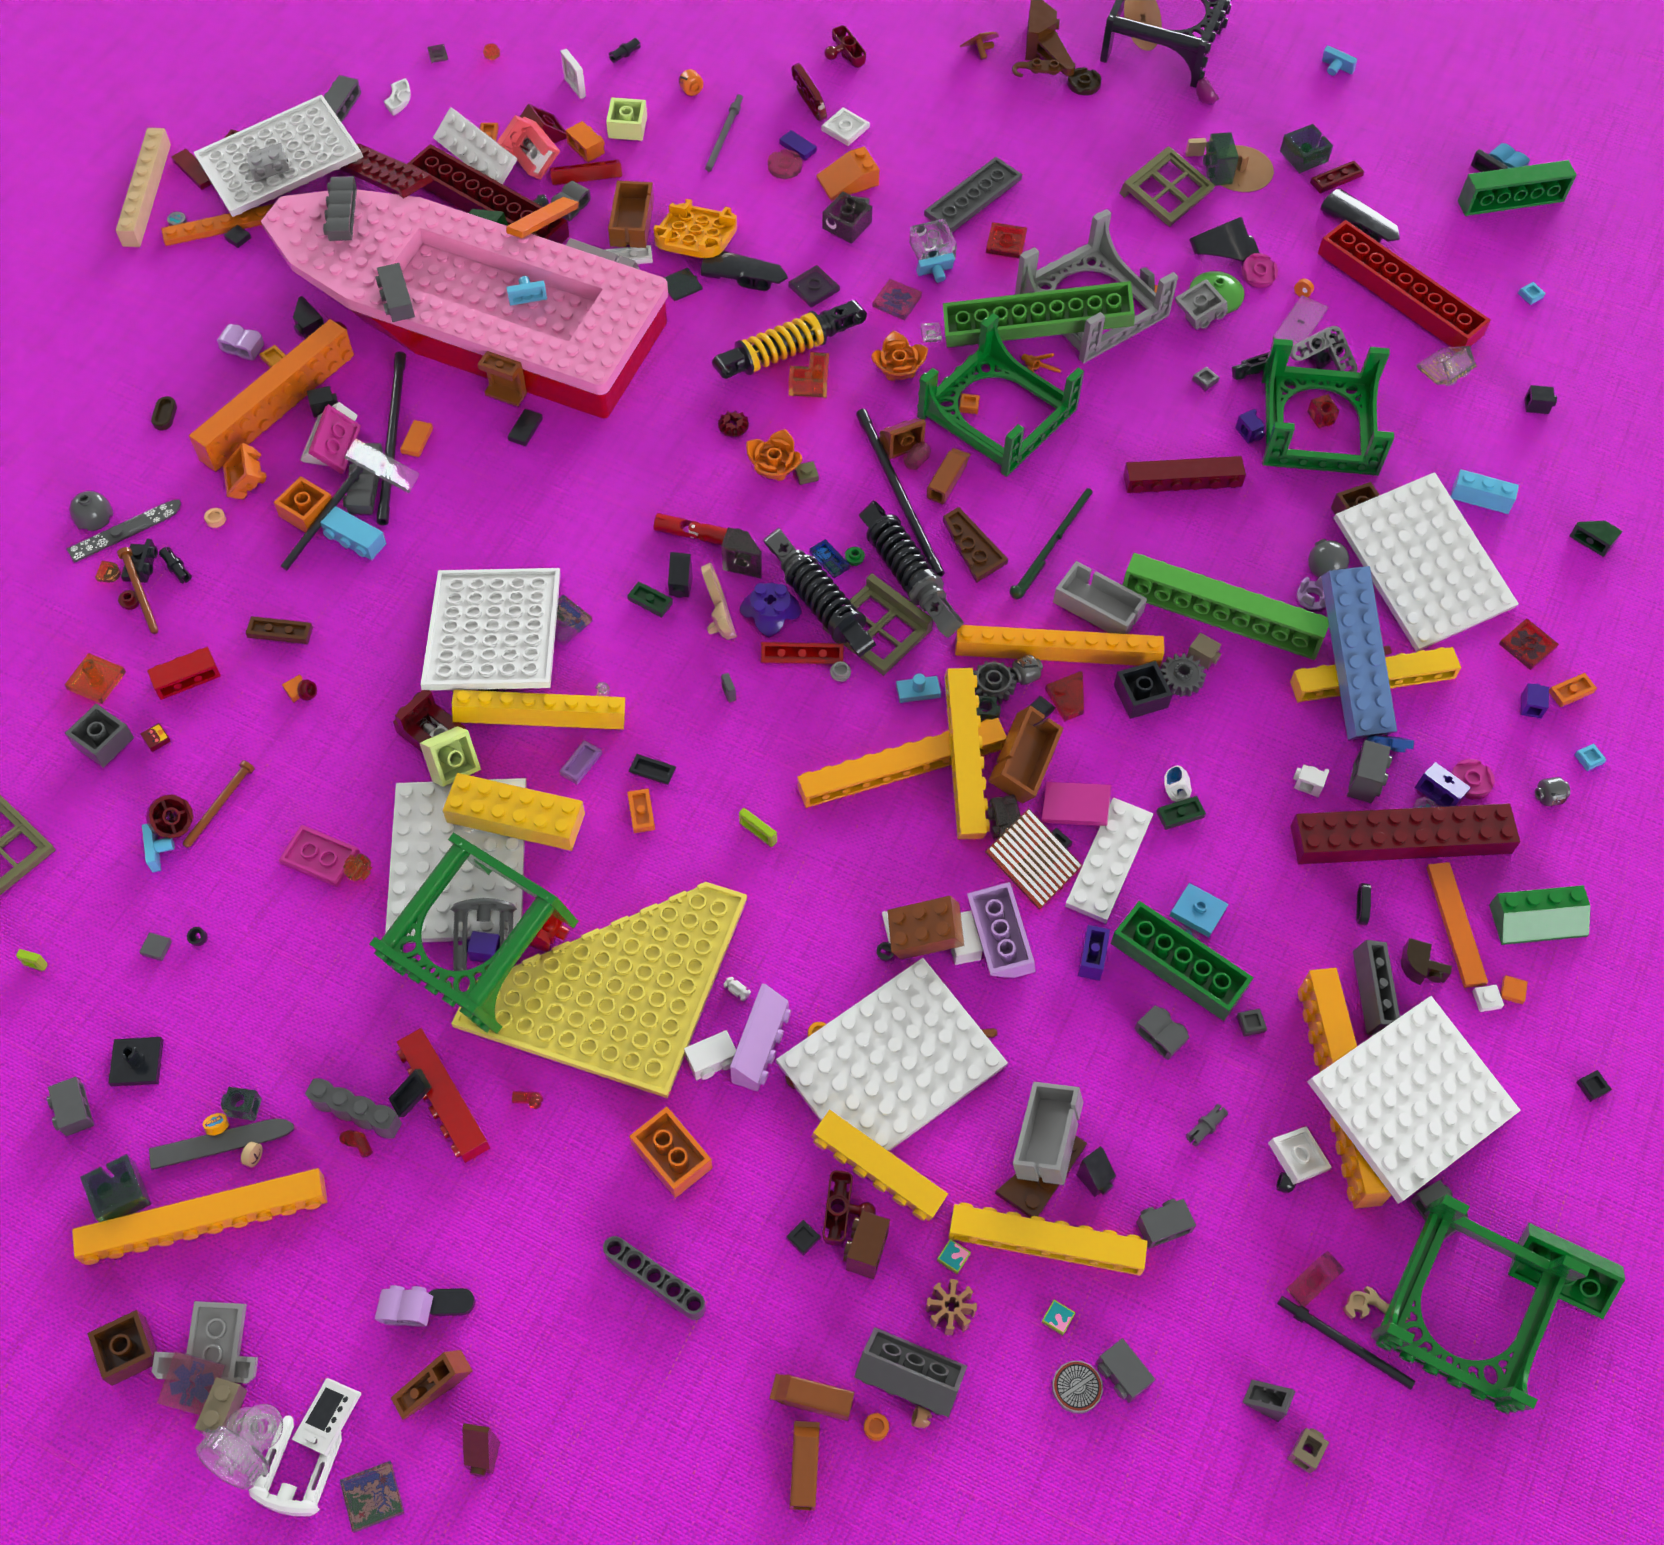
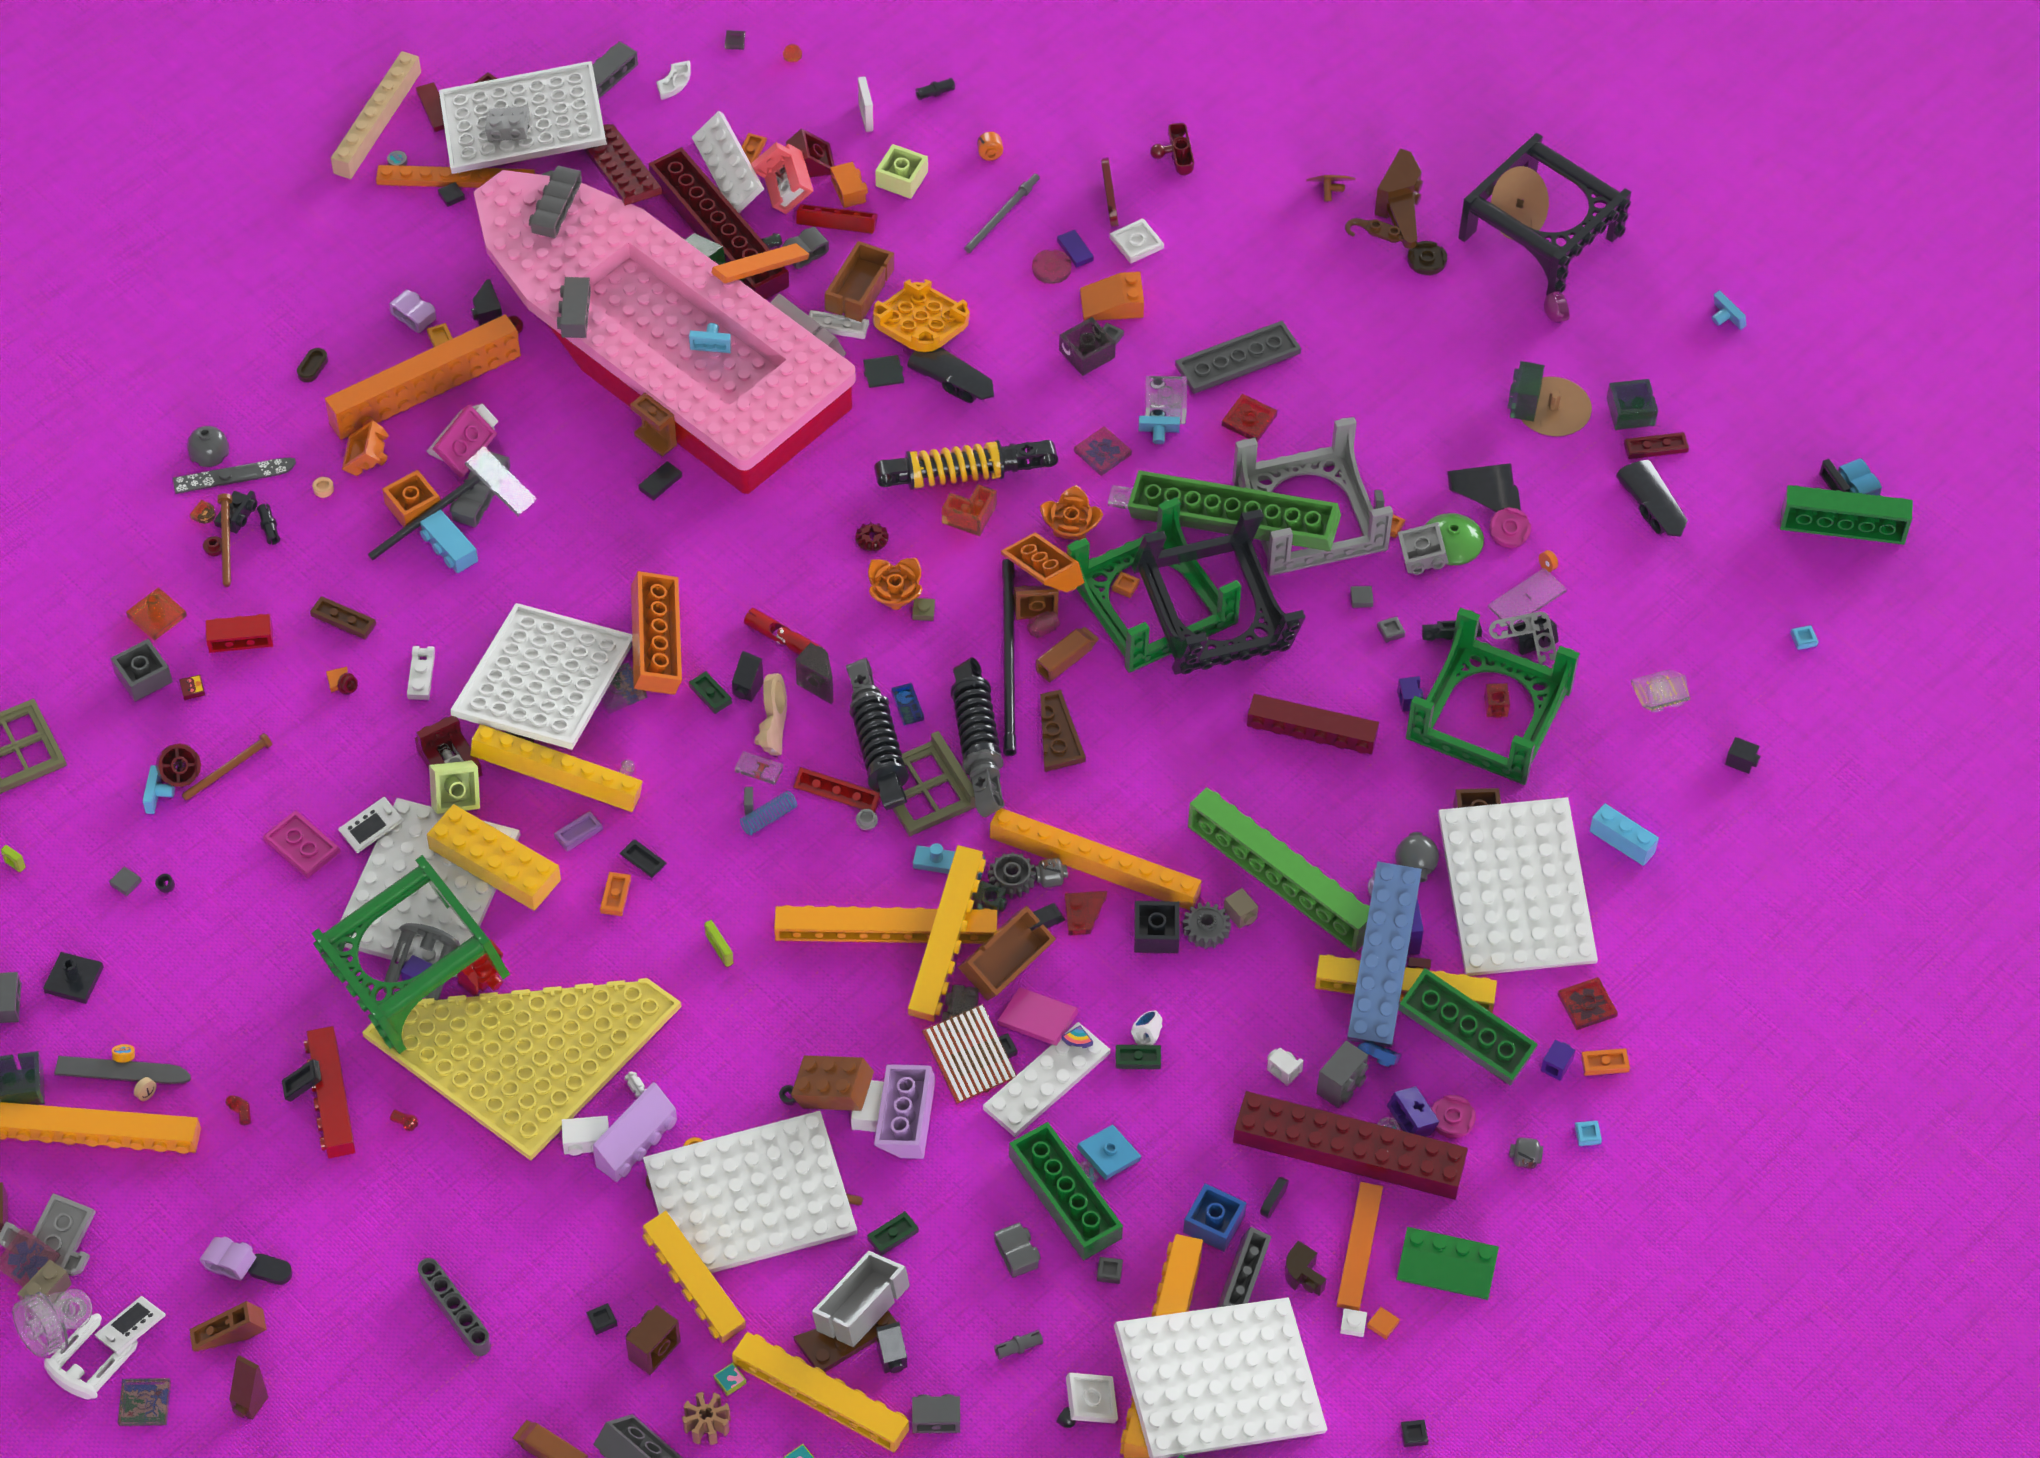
camera: 20 degrees right, 5 degrees down
(247, 1110) = (155, 1049): brick -> none
(320, 398) = (469, 394): black brick -> none
(353, 1108) = (247, 1078): dark grey brick -> none
(357, 867) = (331, 865): clear orange gear -> none
(373, 660) = (421, 673): none -> white plate
(380, 816) = (370, 824): none -> white container
(399, 367) = (559, 381): black piece -> none
(416, 438) = (548, 461): orange tile -> none
(580, 560) = (656, 633): none -> orange brick
(671, 1152) = (512, 1205): orange brick -> none
(722, 654) = (759, 768): none -> clear tile
(748, 688) = (762, 810): none -> dark azure piece
(767, 617) = (820, 745): dark purple brick -> none
(814, 286) = (1021, 412): clear smoke tile -> none
(838, 1221) = (635, 1312): dark red piece -> none
(854, 560) = (933, 713): green plate -> none
(901, 400) = (1045, 562): none -> orange slope
(1019, 590) = (1082, 793): dark green bar -> none
(1034, 362) = (1215, 561): orange plant -> none
(1041, 1054) = (892, 1233): none -> dark green plate
(1074, 435) = (1192, 651): none -> black arch
(1093, 952) = (984, 1157): dark purple brick -> none
(1102, 602) = (1158, 831): light grey piece -> none
(1124, 812) = (1078, 1038): none -> tile
(1132, 185) = (1444, 382): olive window -> none
(1168, 358) = (1361, 596): none -> dark grey tile
(1195, 147) = (1508, 367): tan tile -> none
(1325, 941) = (1214, 1217): none -> blue brick
(1403, 286) = (1656, 590): red brick -> none
(1455, 695) = (1467, 1026): none -> green brick
(1596, 535) = (1722, 916): dark green slope -> none

